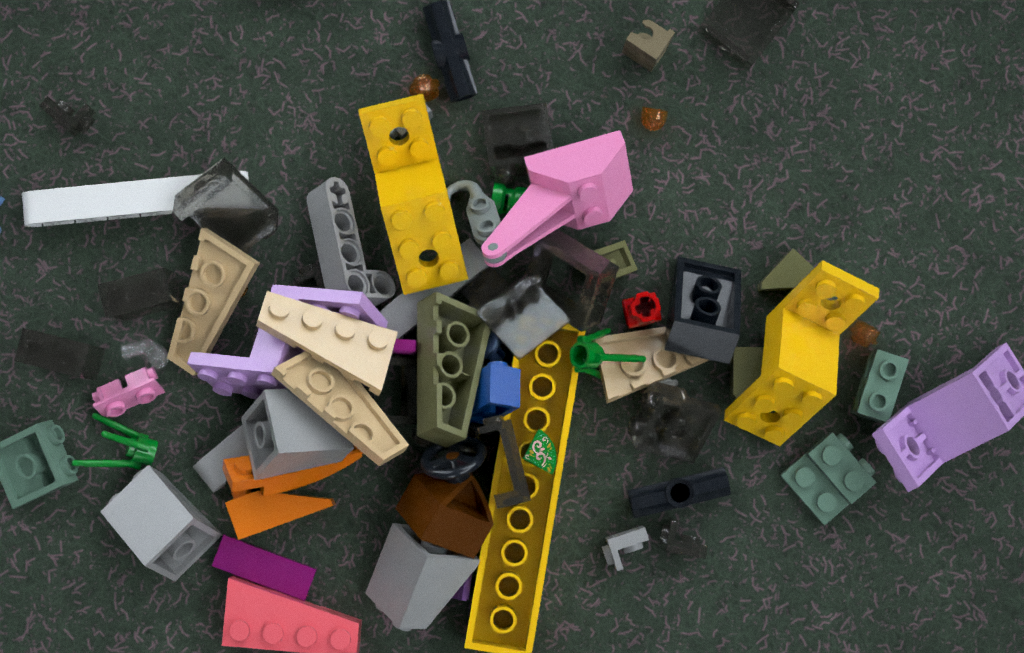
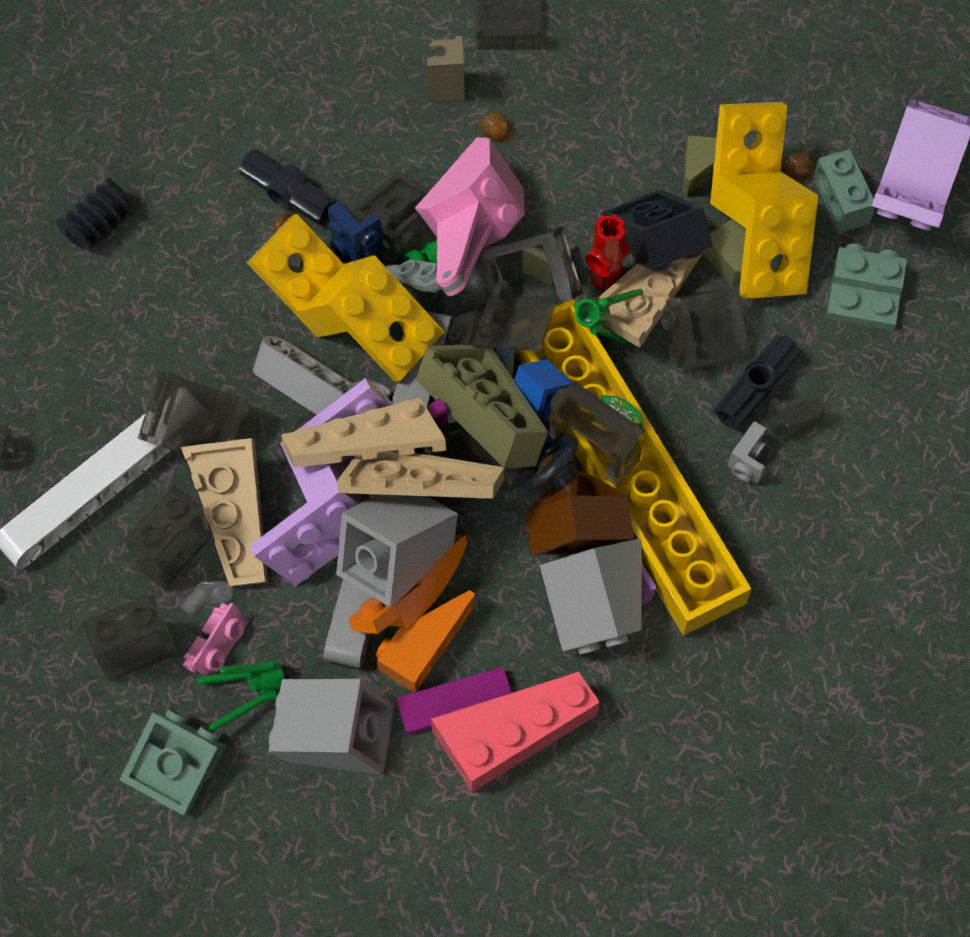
camera: 30 degrees left, 20 degrees down
(456, 137) = (351, 238): none -> dark blue bracket

